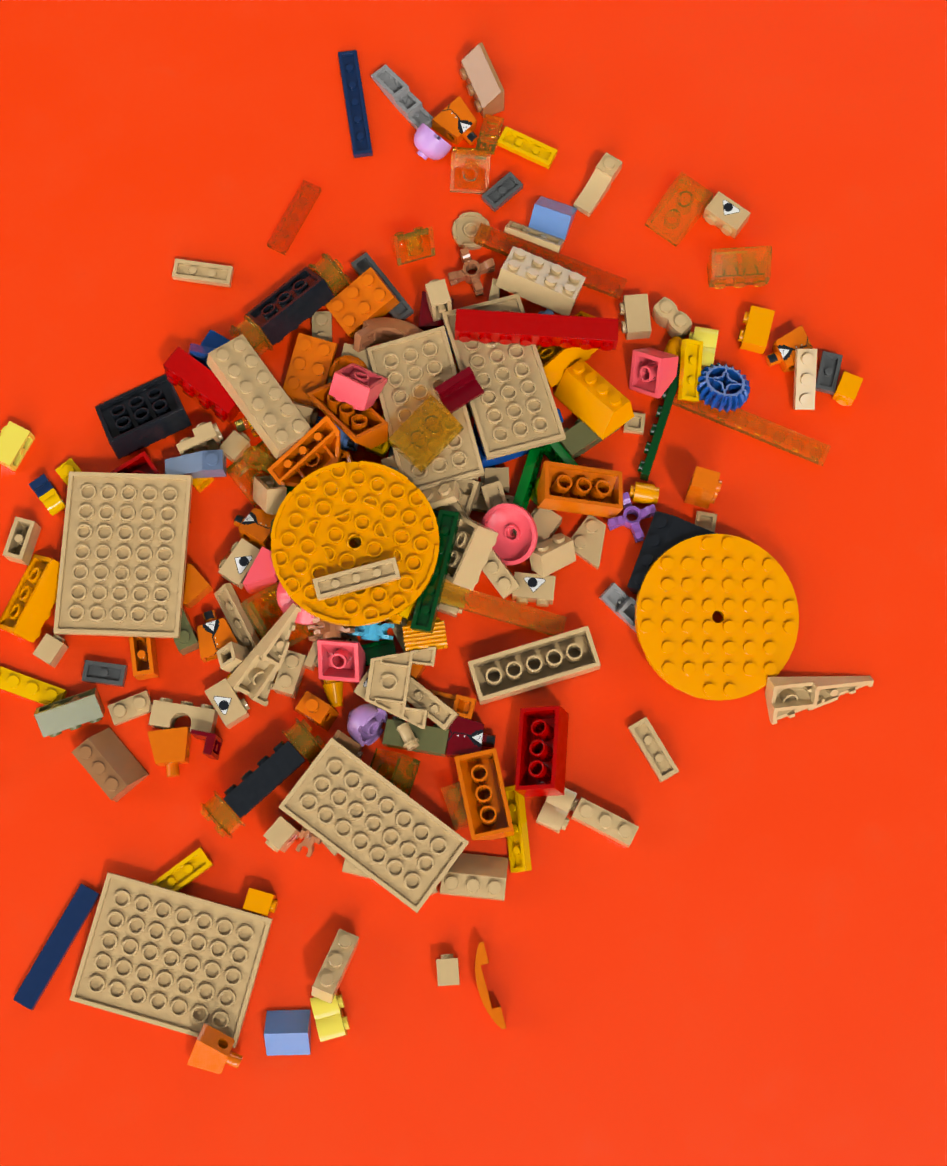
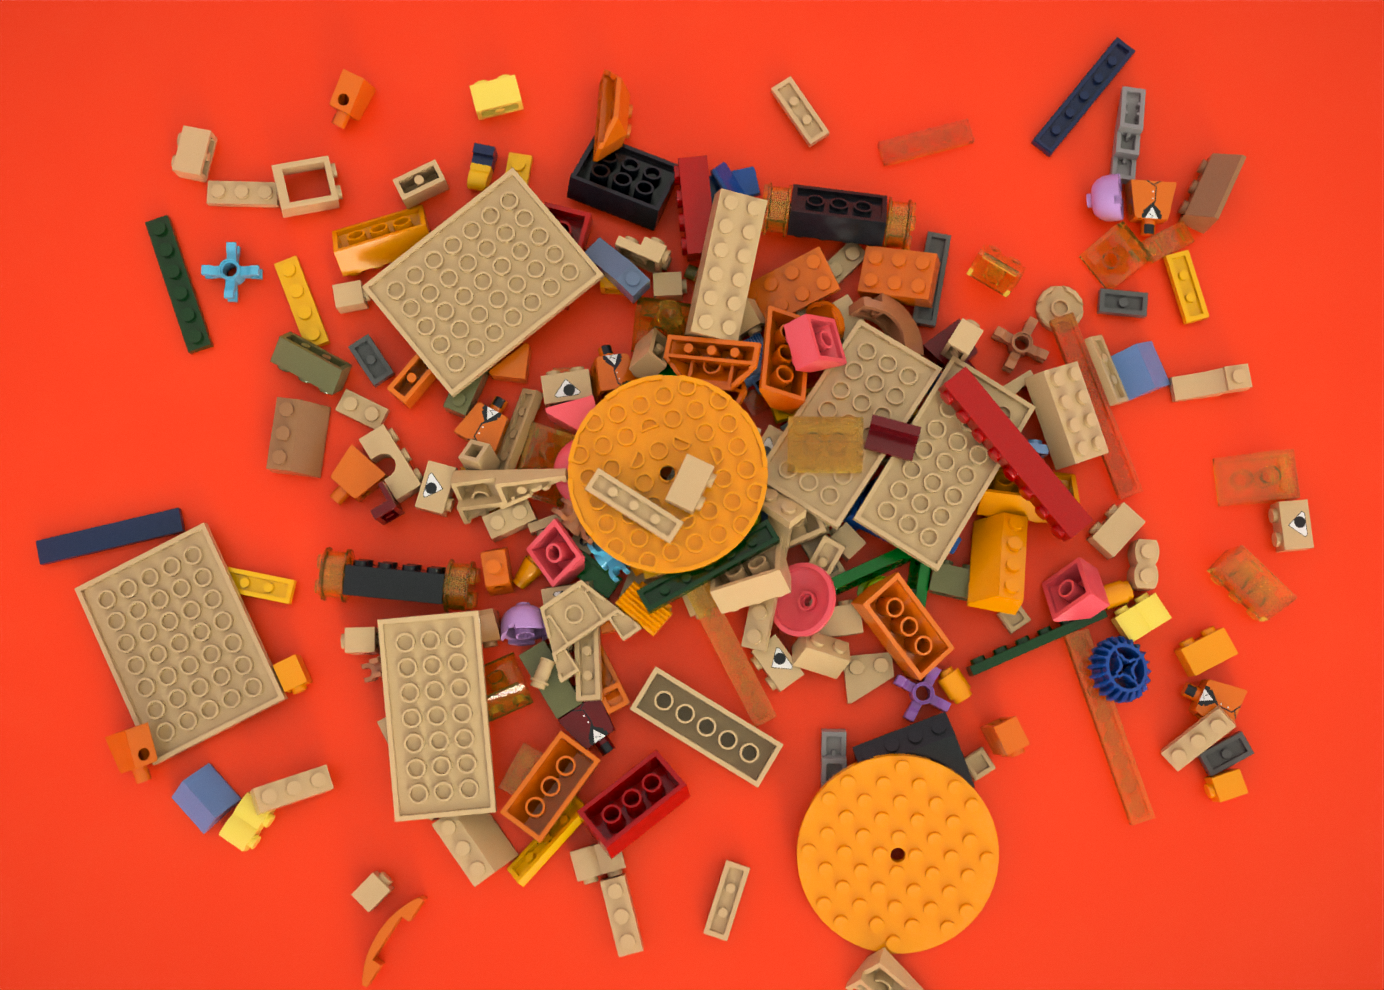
camera: 45 degrees right, 5 degrees up
(93, 385) = (612, 115): none -> orange wedge
(375, 532) = (690, 484): none -> tan brick
(690, 370) = (1107, 626): yellow plate -> none

